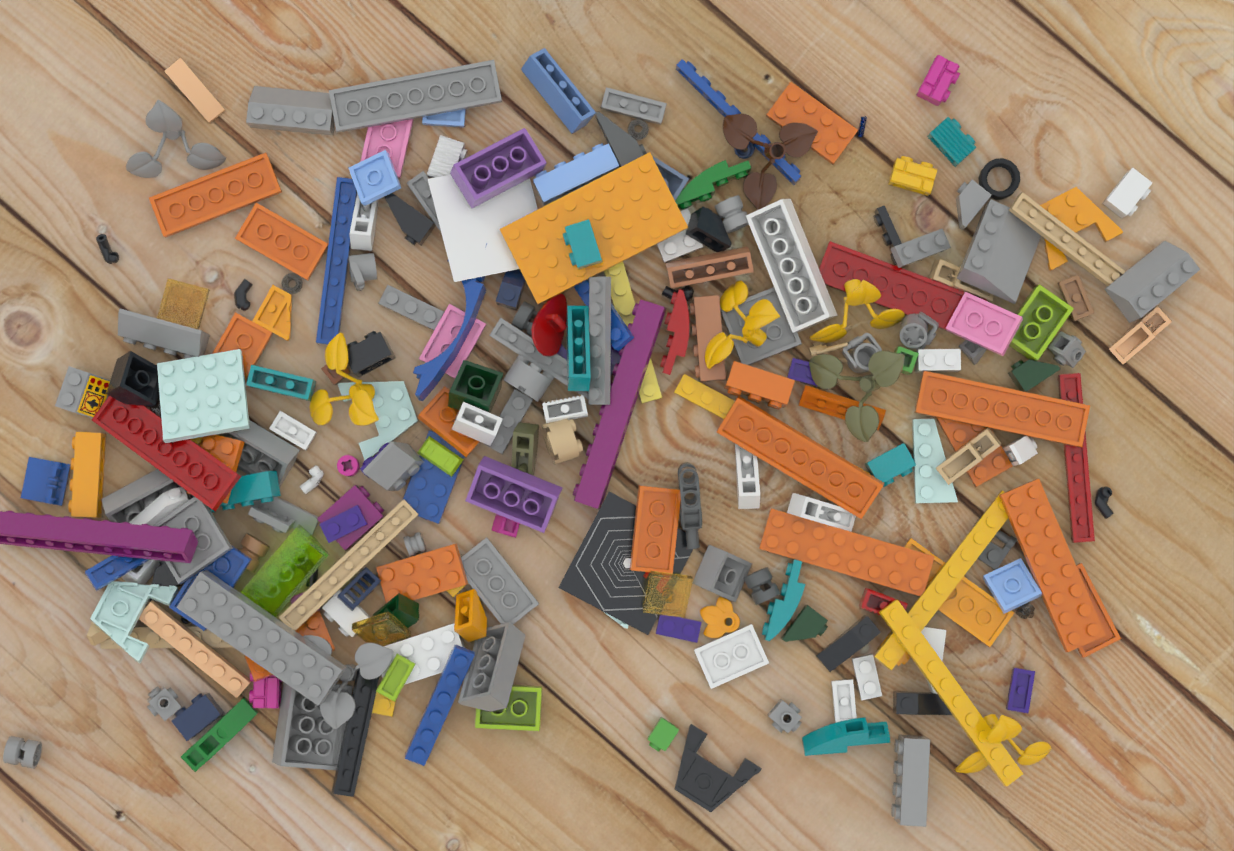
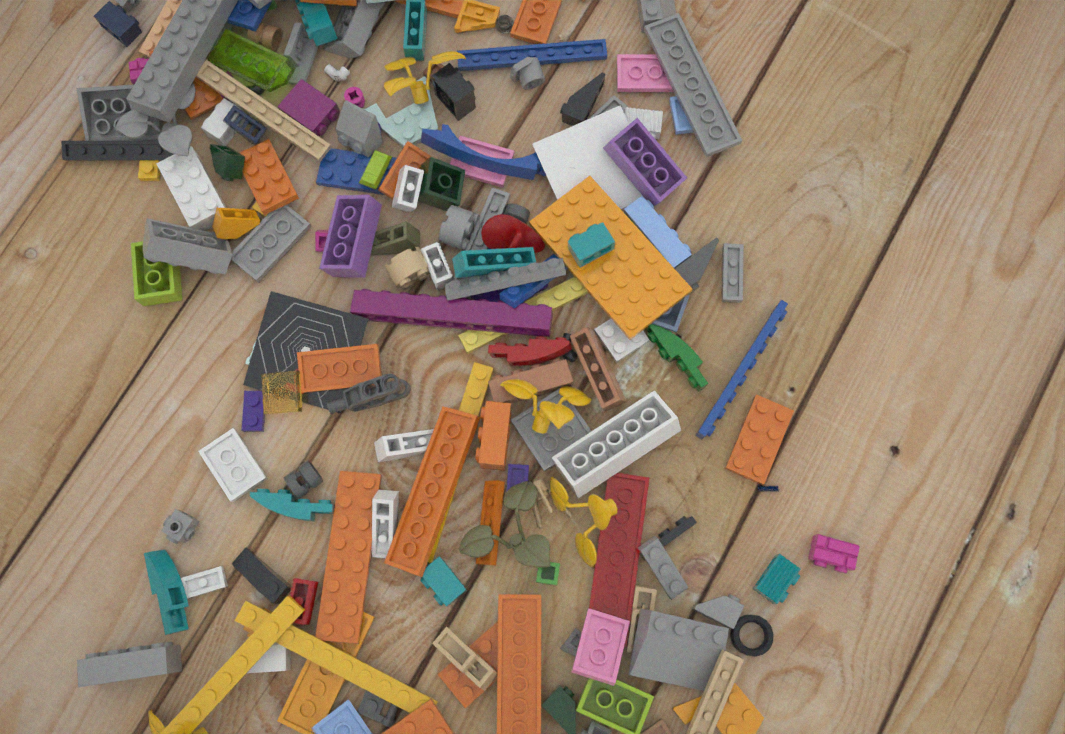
camera: 80 degrees right, 10 degrees down
(219, 734) = (104, 42): green slope -> none
(293, 430) = (377, 49): white plate -> none
(343, 524) = (299, 99): dark purple plate -> none
(363, 225) = (572, 67): white slope -> none
(374, 178) = (610, 64): light blue plate -> none
(381, 629) = (209, 148): clear yellow plate -> none
(395, 677) = (166, 165): lime tile -> none
(411, 307) = (505, 121): light grey plate -> none
(415, 544) = (293, 165): light grey wheel -> none
(439, 705) = (143, 209): blue plate -> none
(511, 289) = (537, 198): dark blue slope -> none
(511, 414) = (427, 225): light grey plate -> none
(558, 90) = (729, 202): medium blue brick -> none
(638, 135) = (709, 286): clear smoke plate -> none
(662, 734) = (149, 415): bright green brick -> none
(704, 781) = (111, 462): black wing -> none
(708, 230) = (633, 361): black slope -> none
(716, 618) = (269, 445): light orange plate -> none
(722, 573) = (309, 439): light grey slope -> none
(732, 213) = (655, 379): light grey wheel -> none
(745, 154) = (715, 377): dark blue plate -> none
(796, 140) = (739, 424): reddish brown plant -> none
(806, 625) = (271, 530): dark green slope -> none
(860, 355) = (547, 529): light grey piece -> none
(866, 677) = (230, 601): white plate -> none
(913, 176) = (732, 546): yellow brick -> none
(915, 331) = (581, 578): light grey piece -> none
(918, 703) = (209, 654): black slope -> none
(928, 454) = (458, 618): light aqua wing -> none
(938, 360) = (555, 608): white brick -> none
(1021, 450) = (481, 713): white slope -> none

